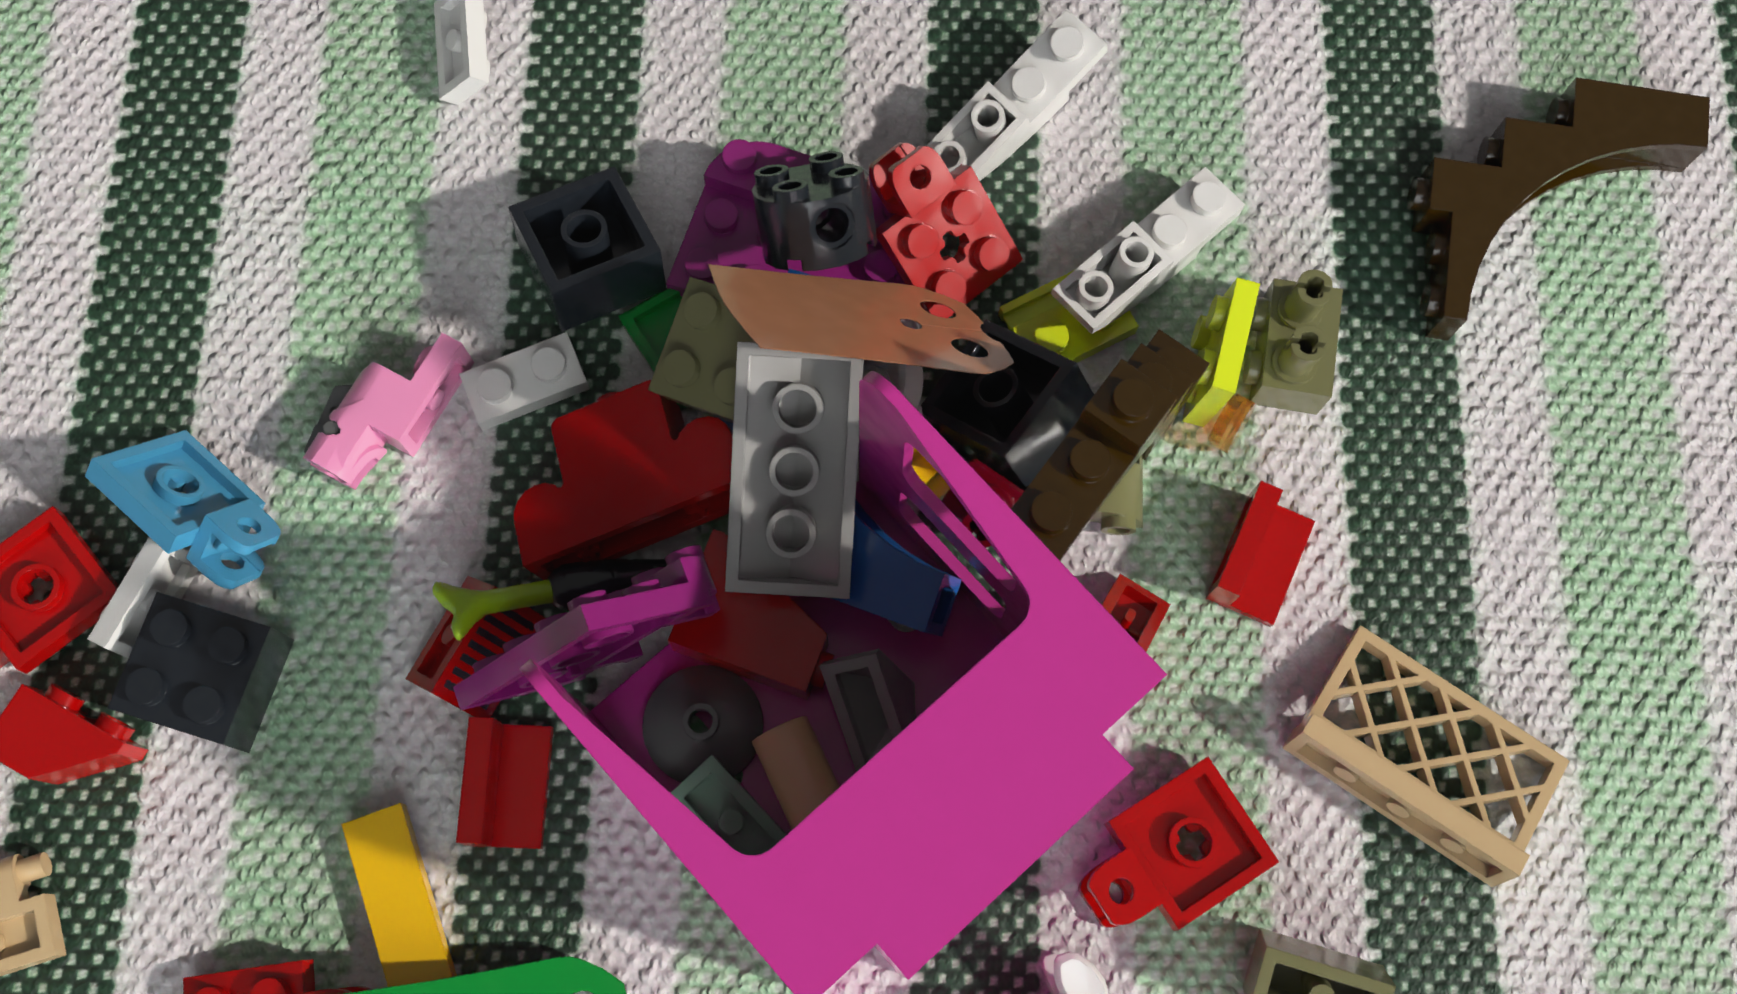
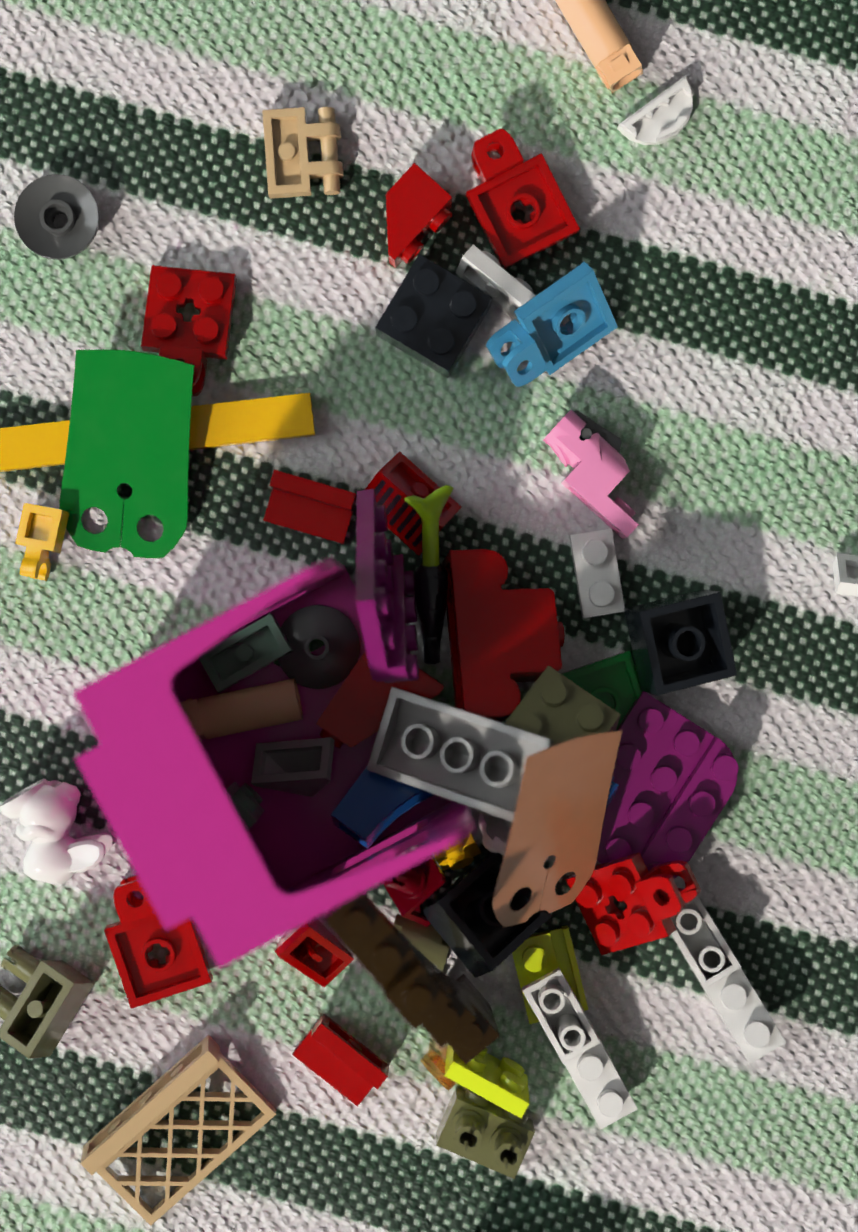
camera: 110 degrees right, 15 degrees up
(814, 213) = (655, 813): black brick -> none

